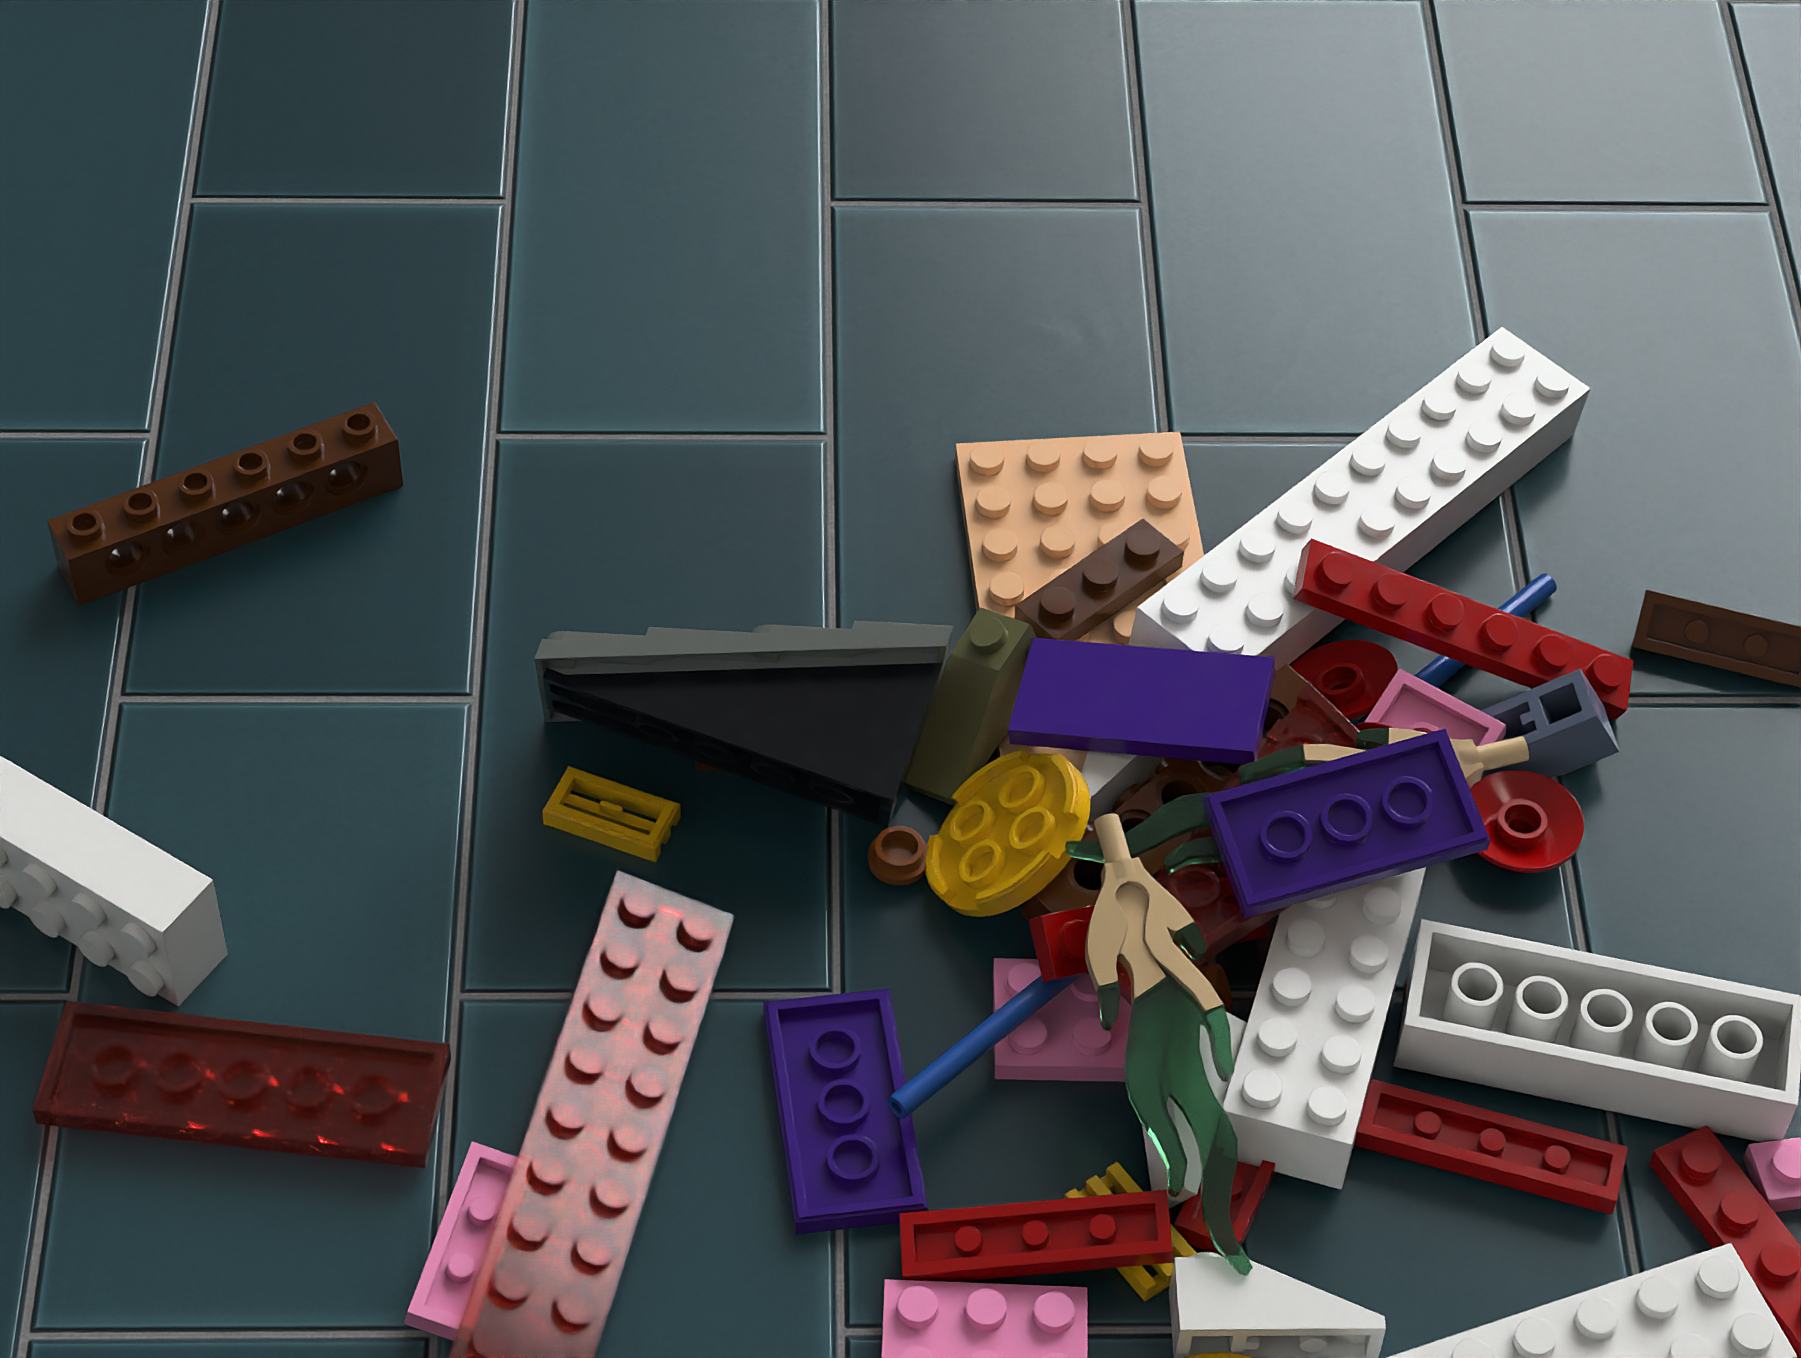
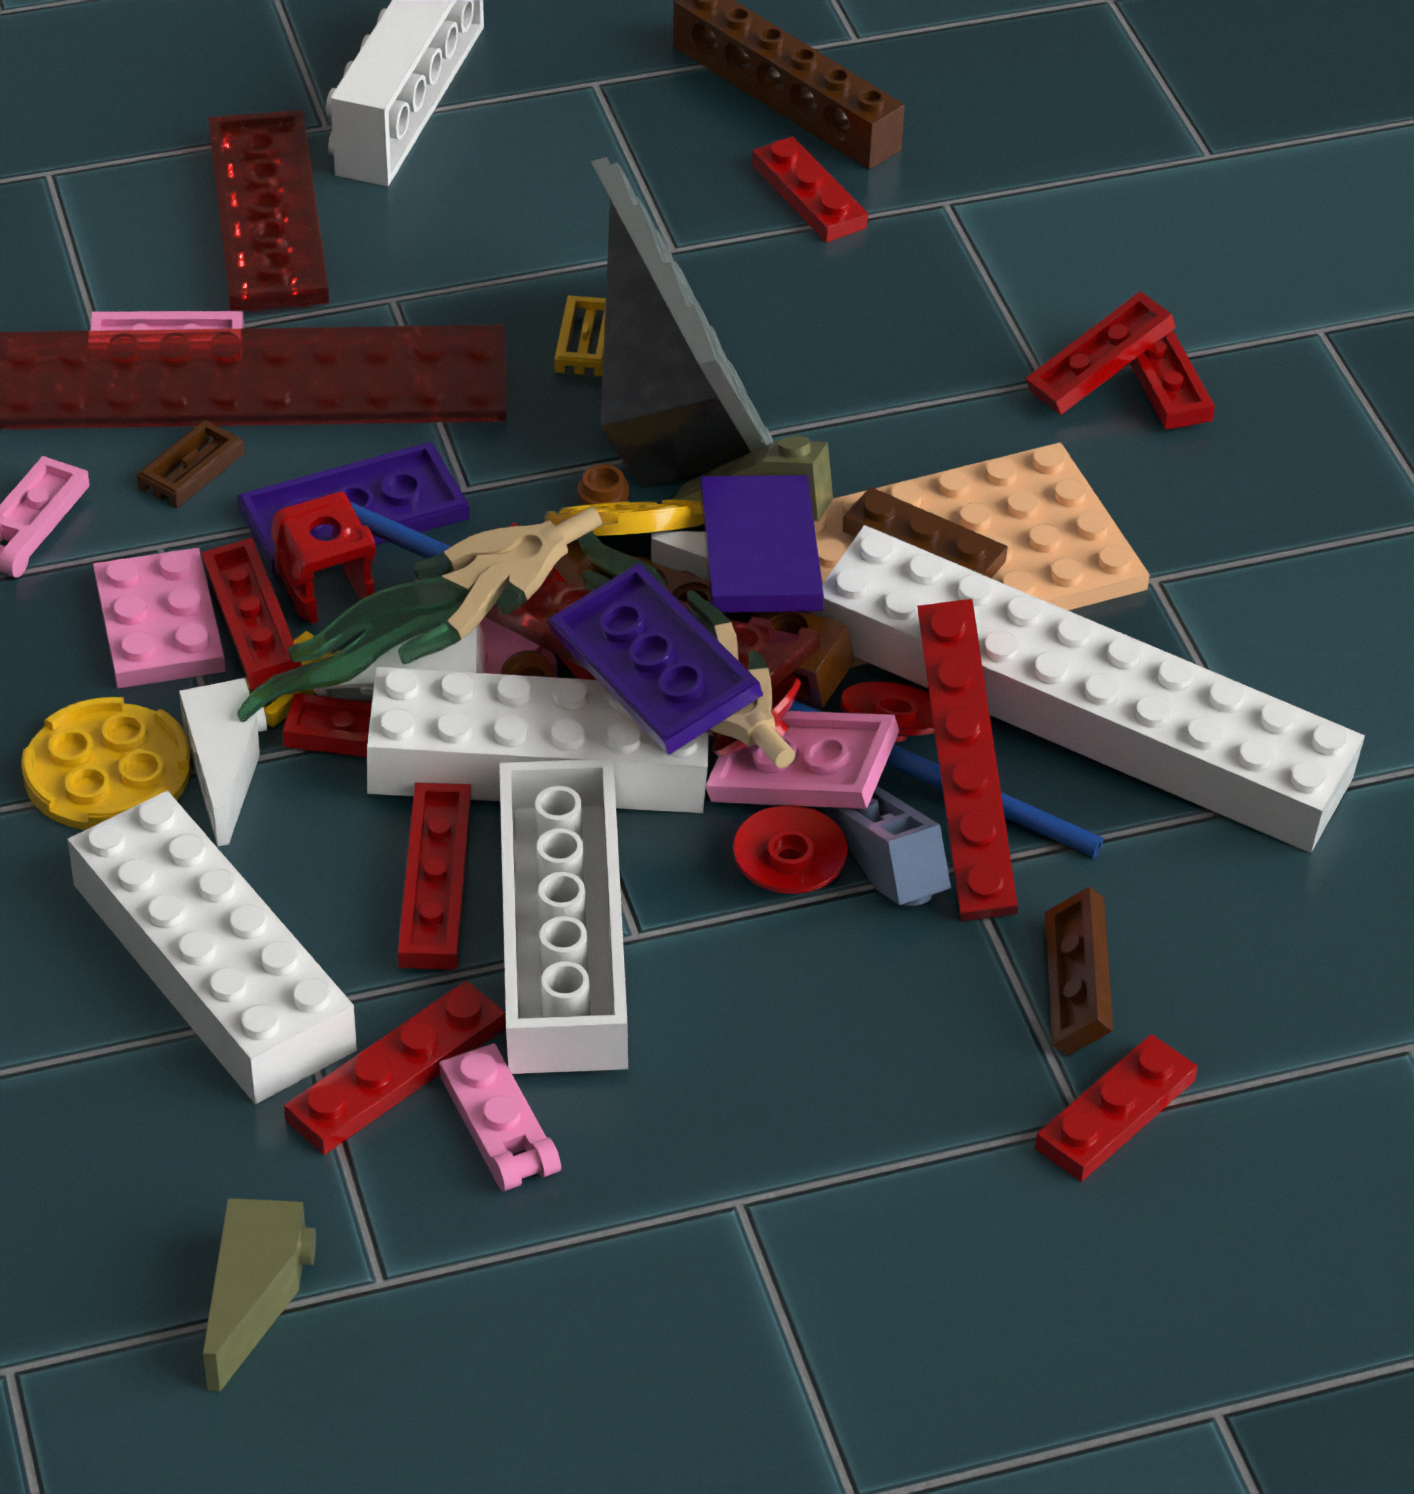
camera: 75 degrees right, 5 degrees down
(427, 543) = (809, 189): none -> red plate
(738, 1304) = (197, 466): none -> reddish brown tile
(846, 366) = (1100, 352): none -> red plate
(868, 331) = (1173, 384): none -> red plate
(993, 1137) = (300, 554): none -> red piece

